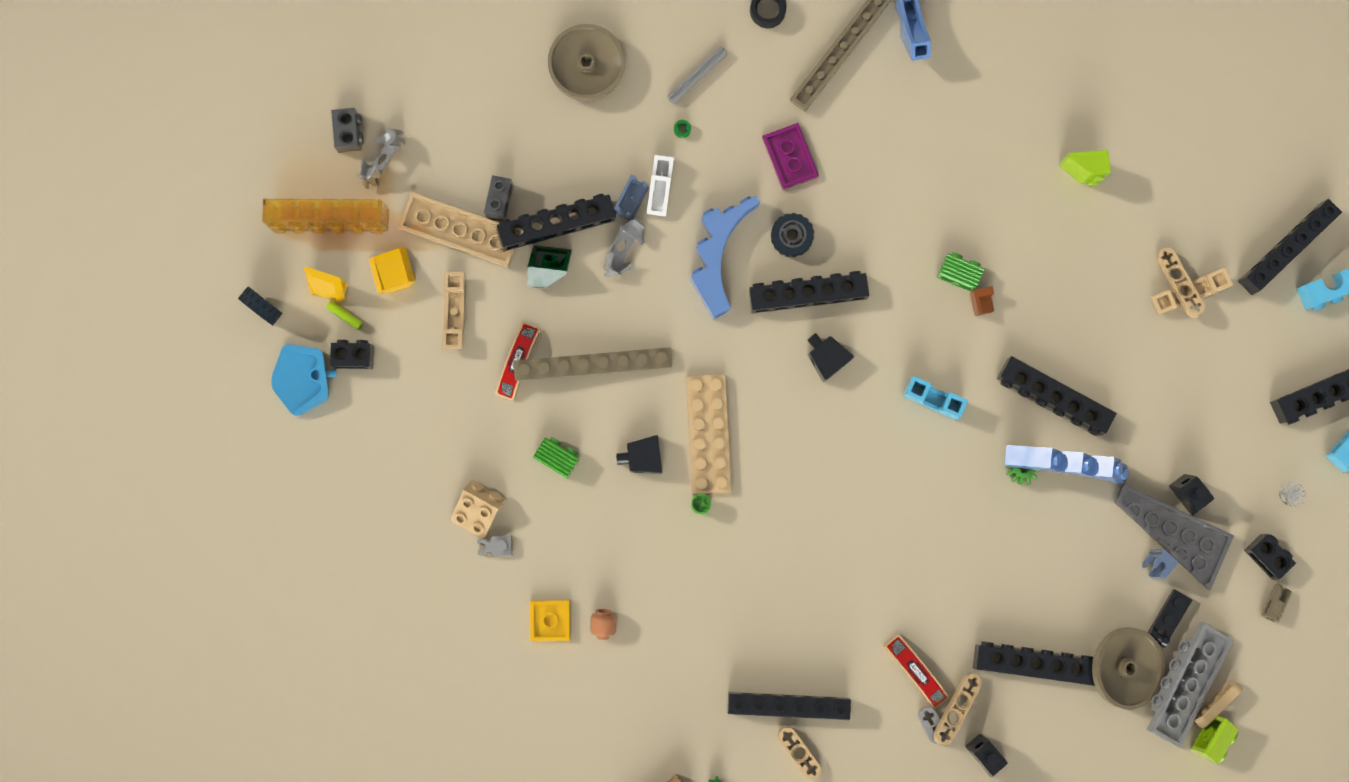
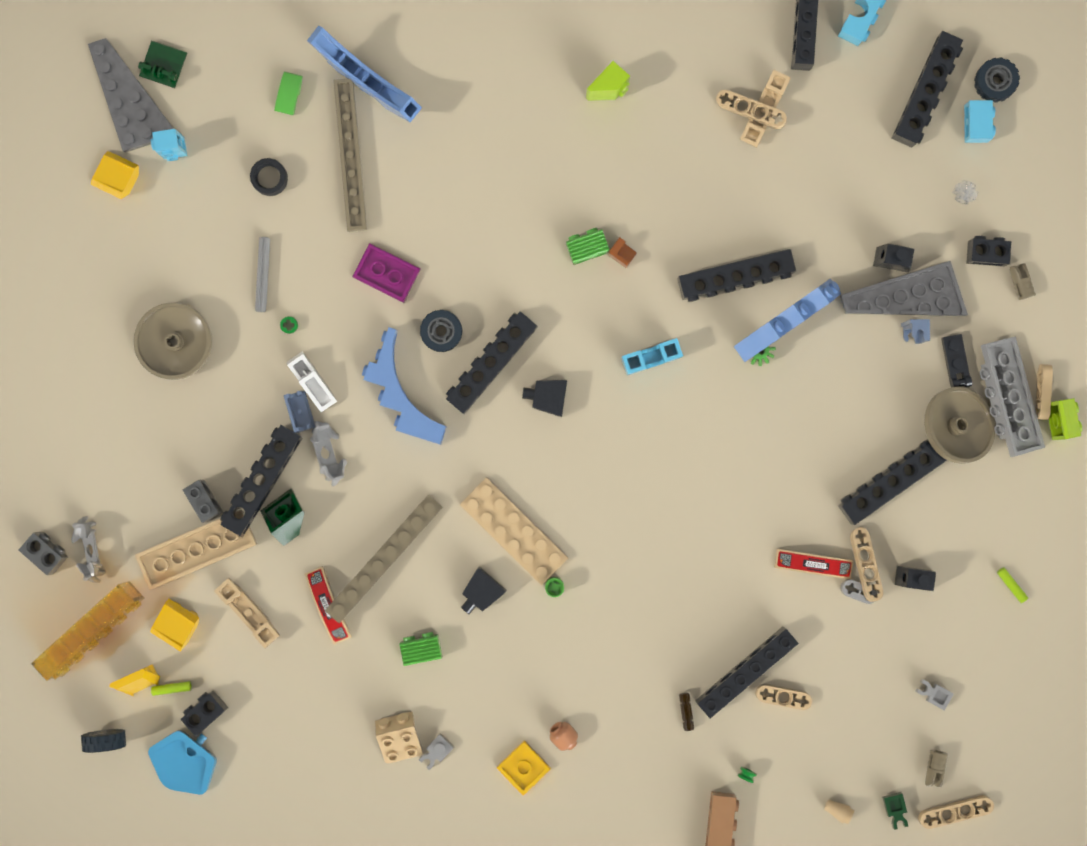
camera: 40 degrees left, 5 degrees up
(714, 693) = (686, 711): none -> dark brown axle

